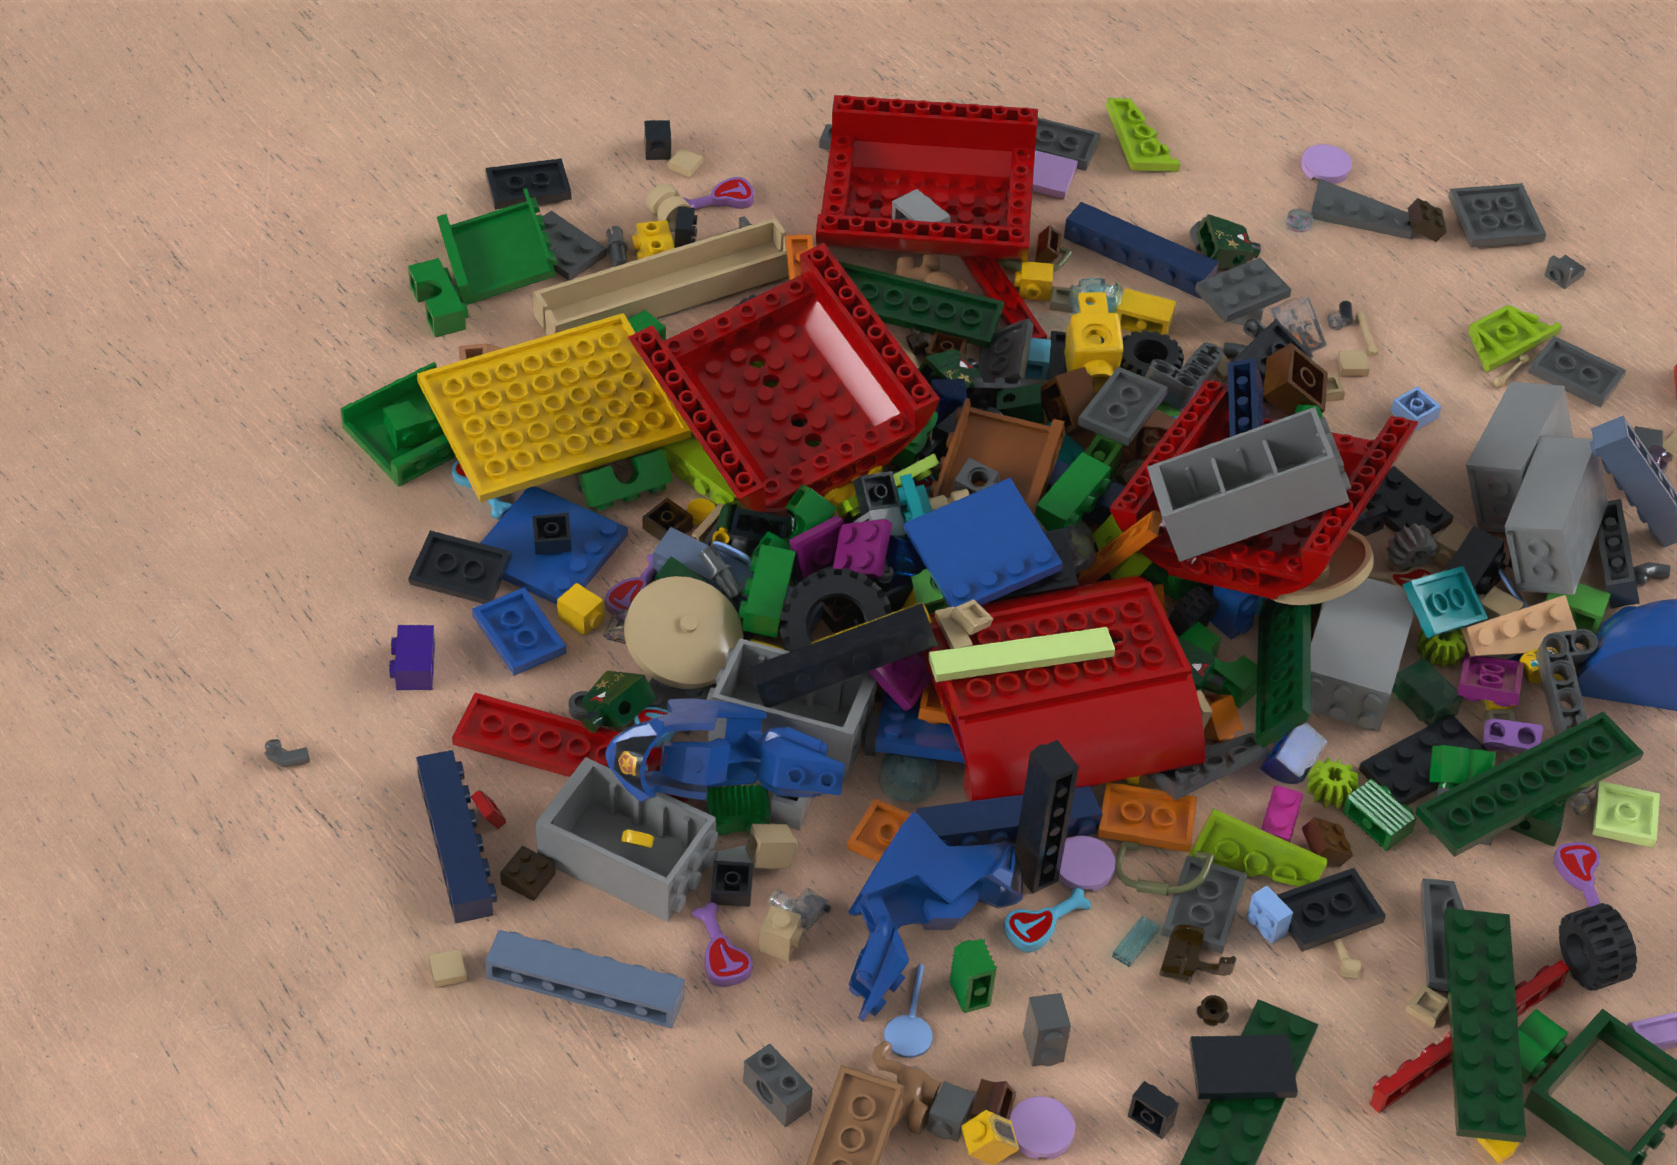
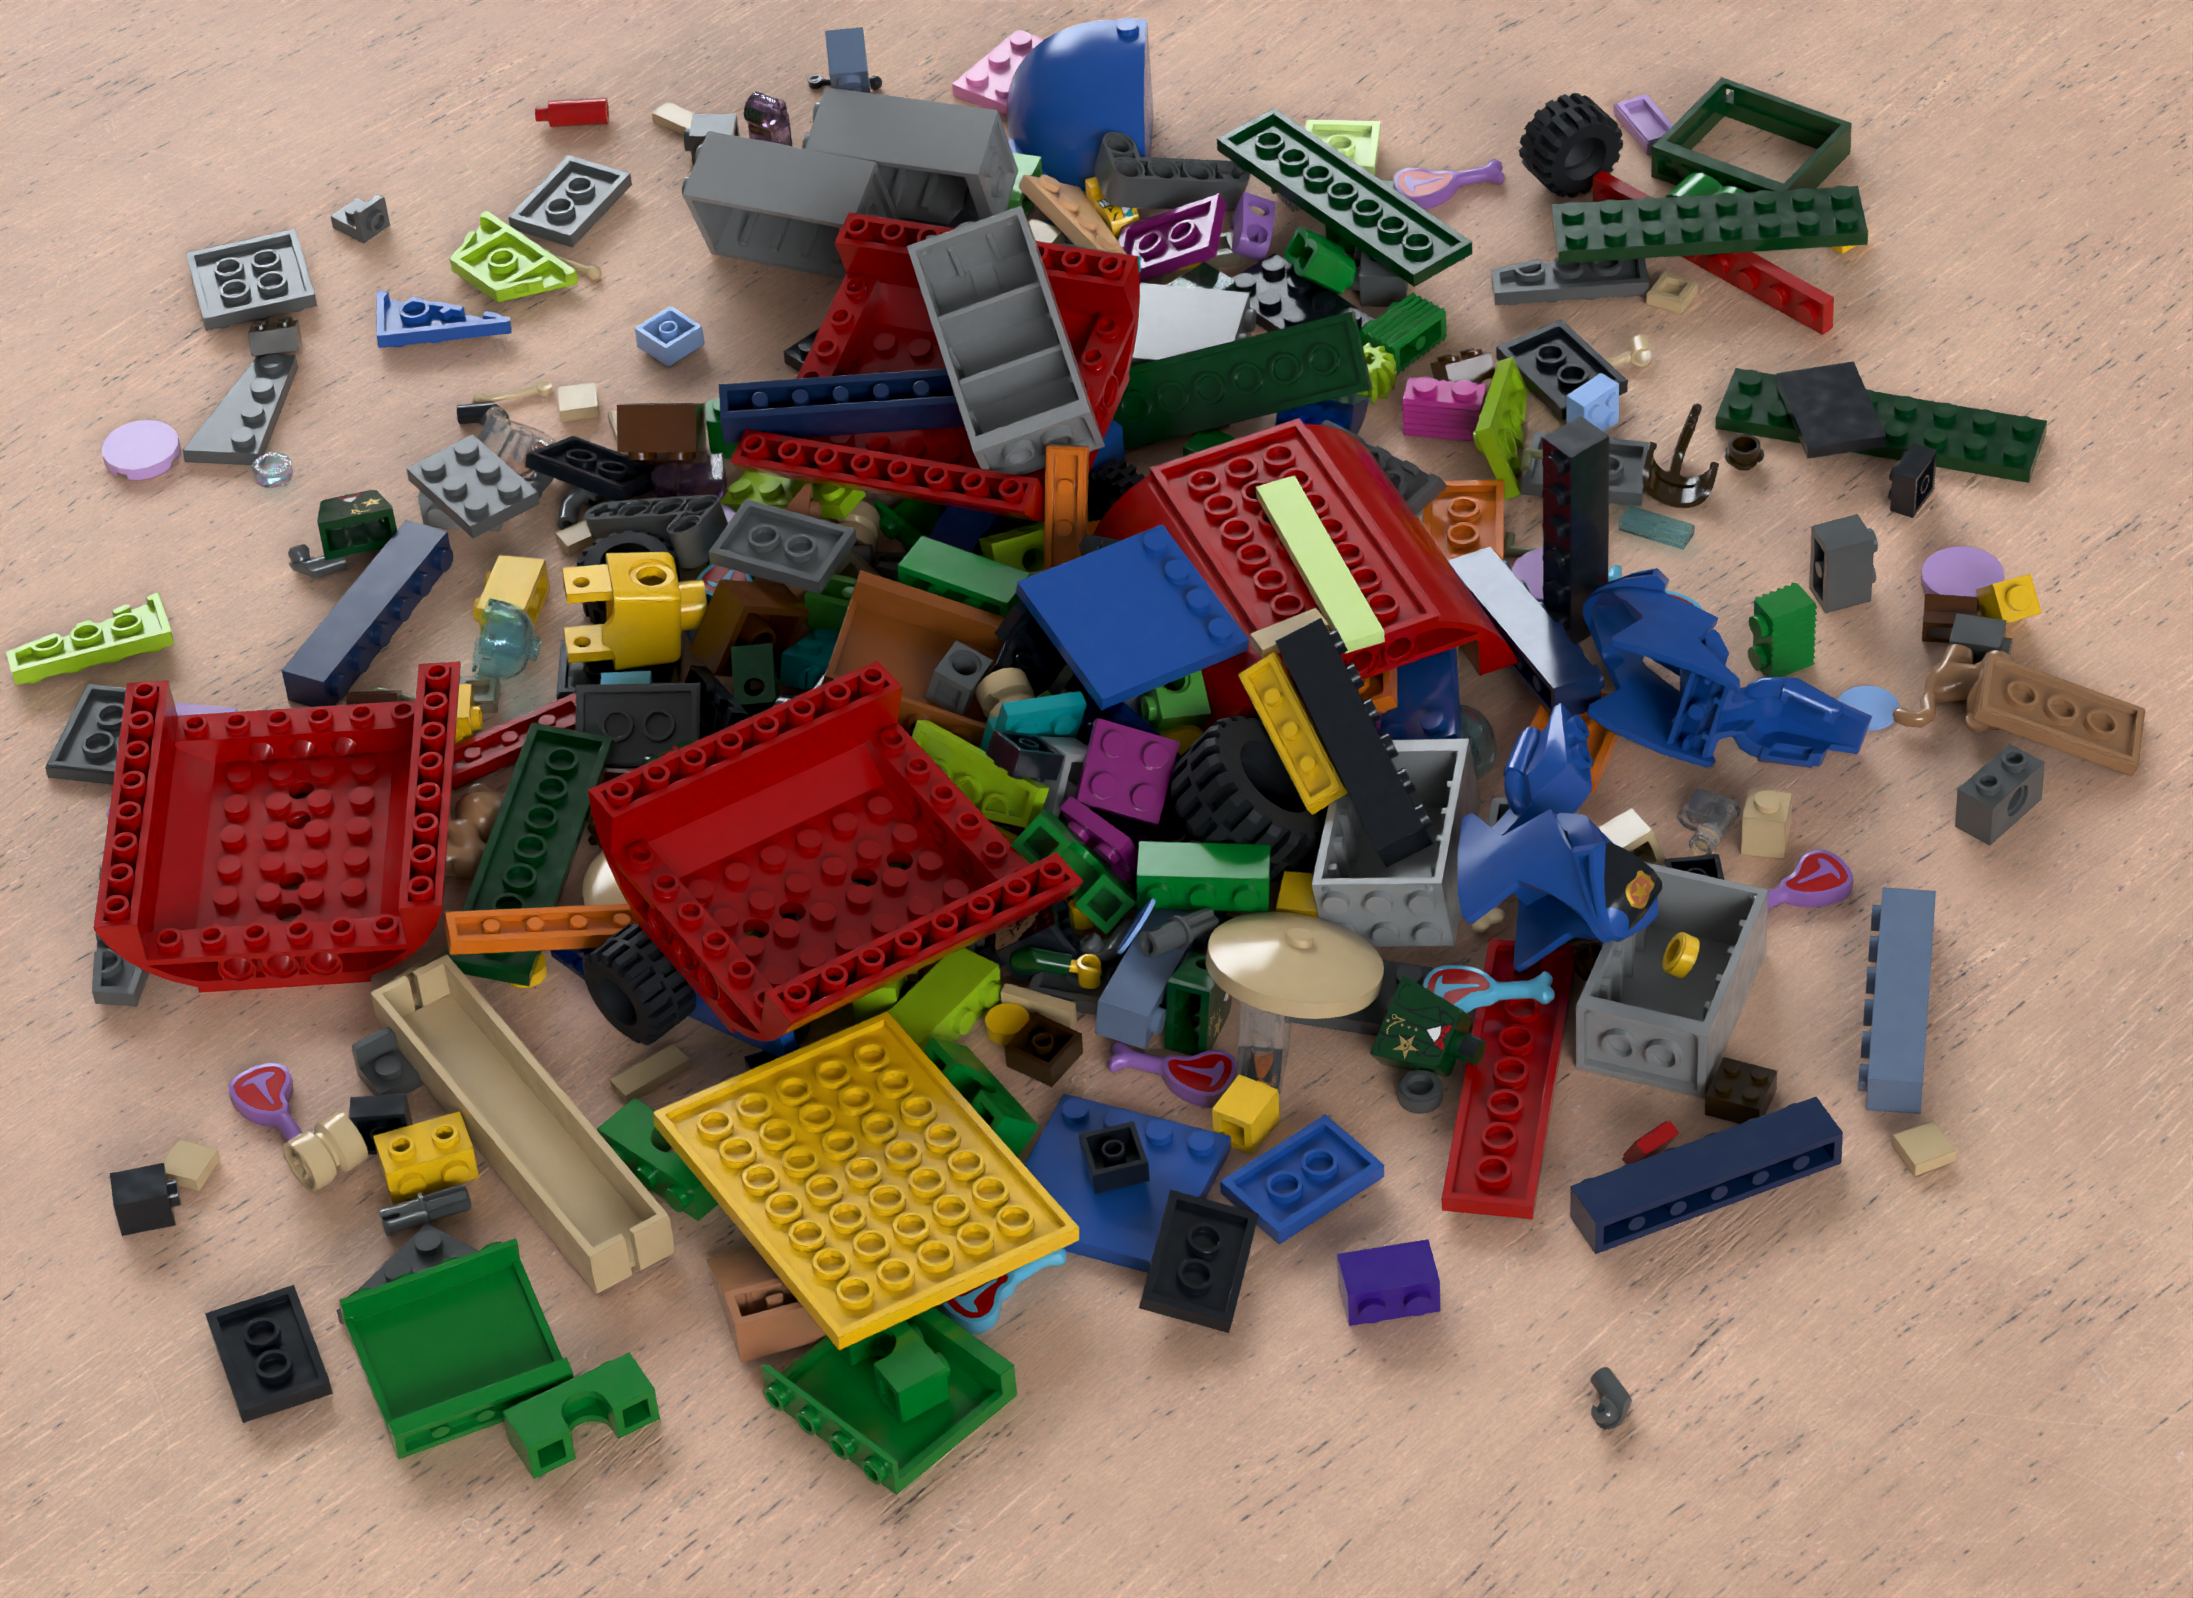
camera: 90 degrees left, 5 degrees down
(918, 208) = (354, 827): light grey brick -> none
(971, 617) = (1268, 611): tan tile -> none
(1443, 292) = (433, 322): none -> blue wing

